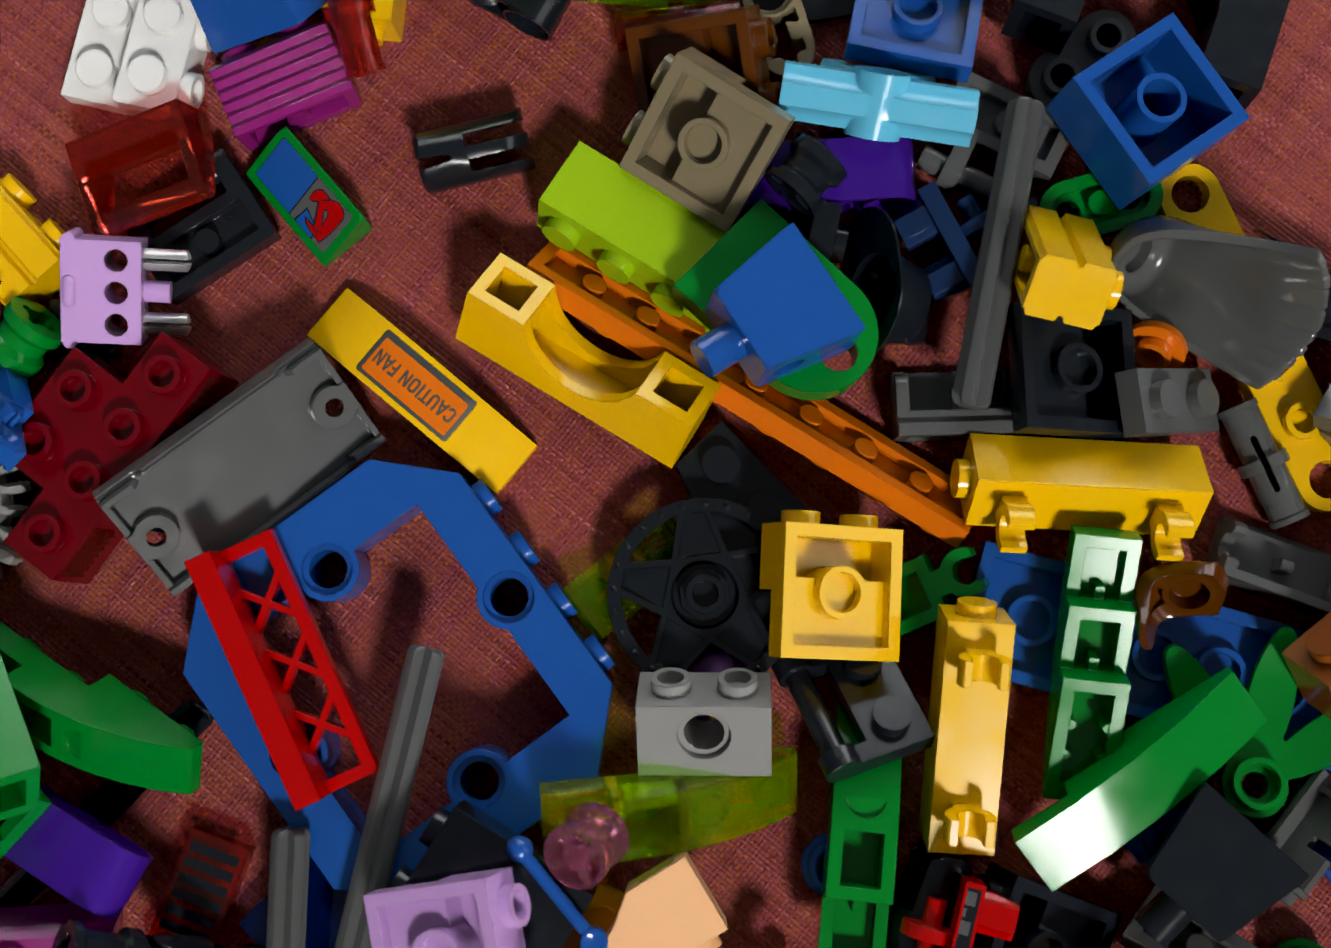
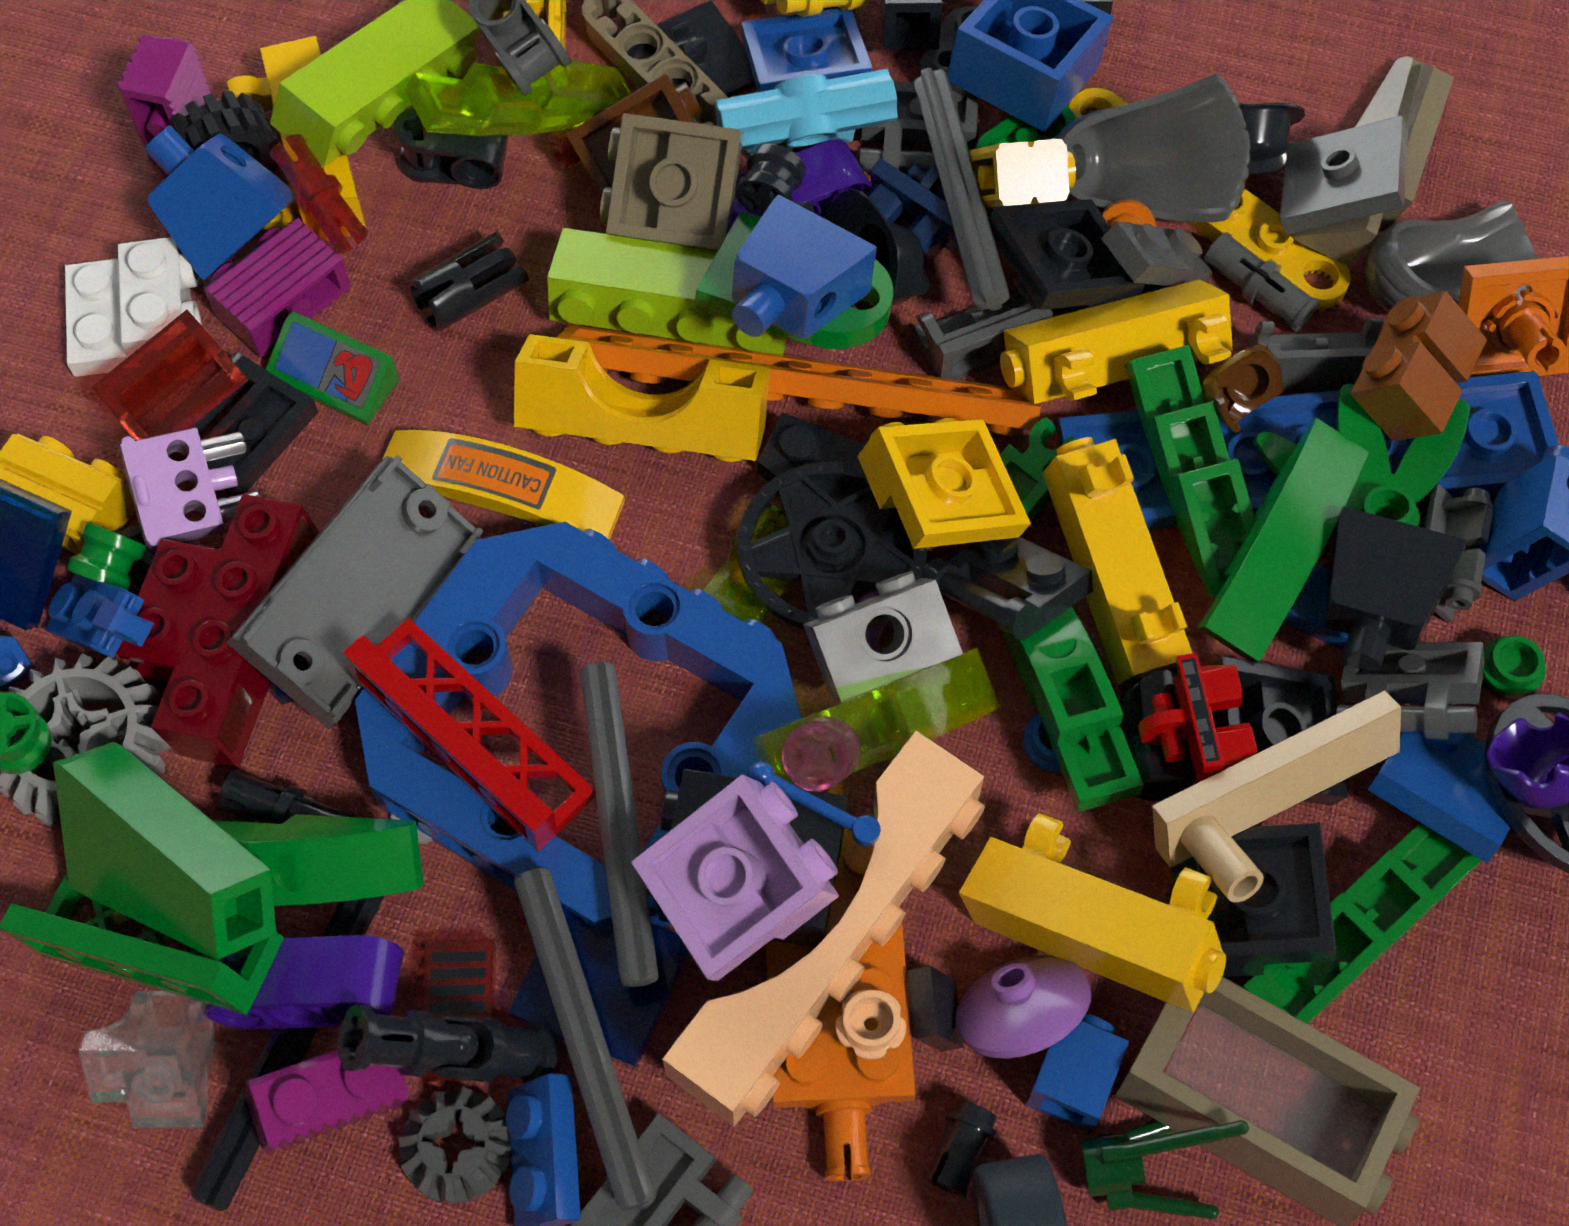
camera: 30 degrees left, 20 degrees down
(113, 647) = (269, 802): none -> black pin

